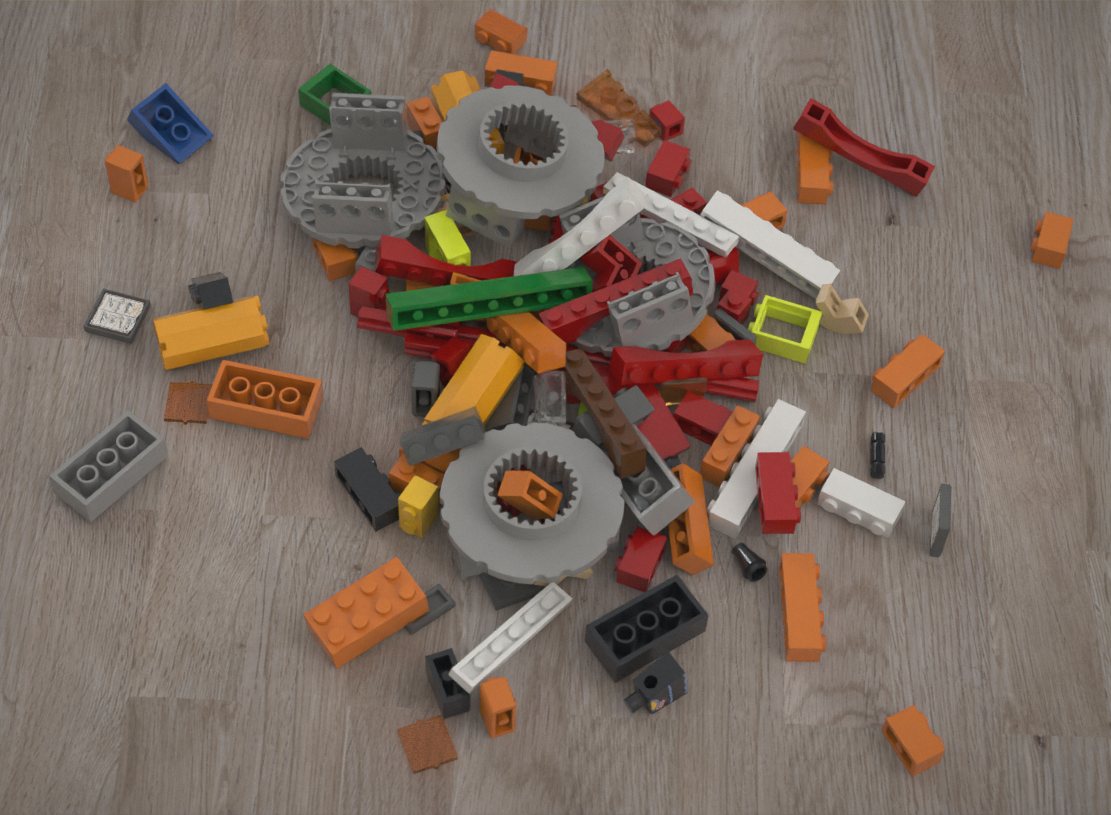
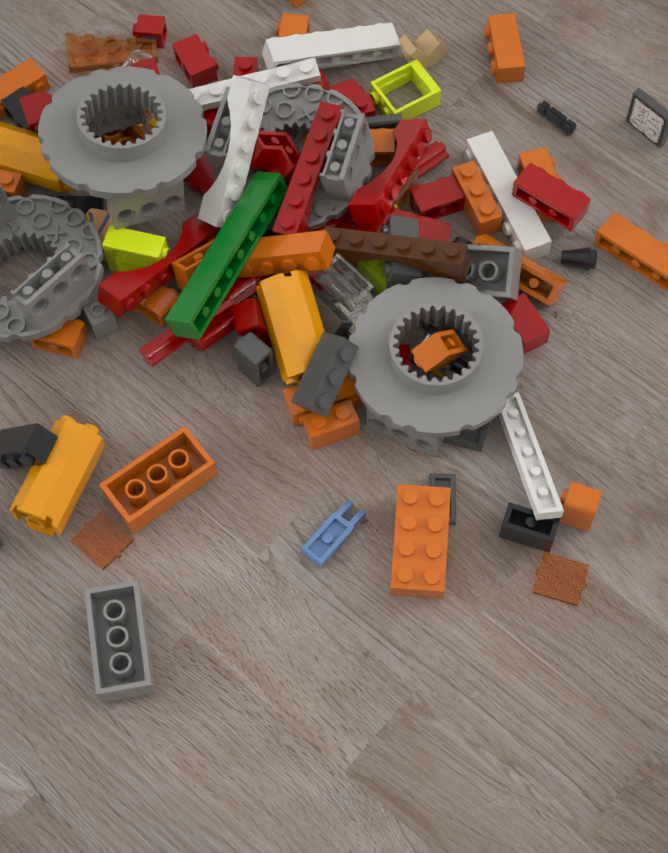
camera: 45 degrees left, 10 degrees up
(324, 550) = (332, 535): none -> medium blue hinge
(367, 290) = (129, 336): red brick -> none
(368, 488) = (305, 463): black brick -> none
(418, 507) = (358, 439): yellow brick -> none
(646, 628) = (587, 362): black brick -> none
(657, 685) = (642, 388): black torso -> none
(861, 503) = (590, 155): white brick -> none

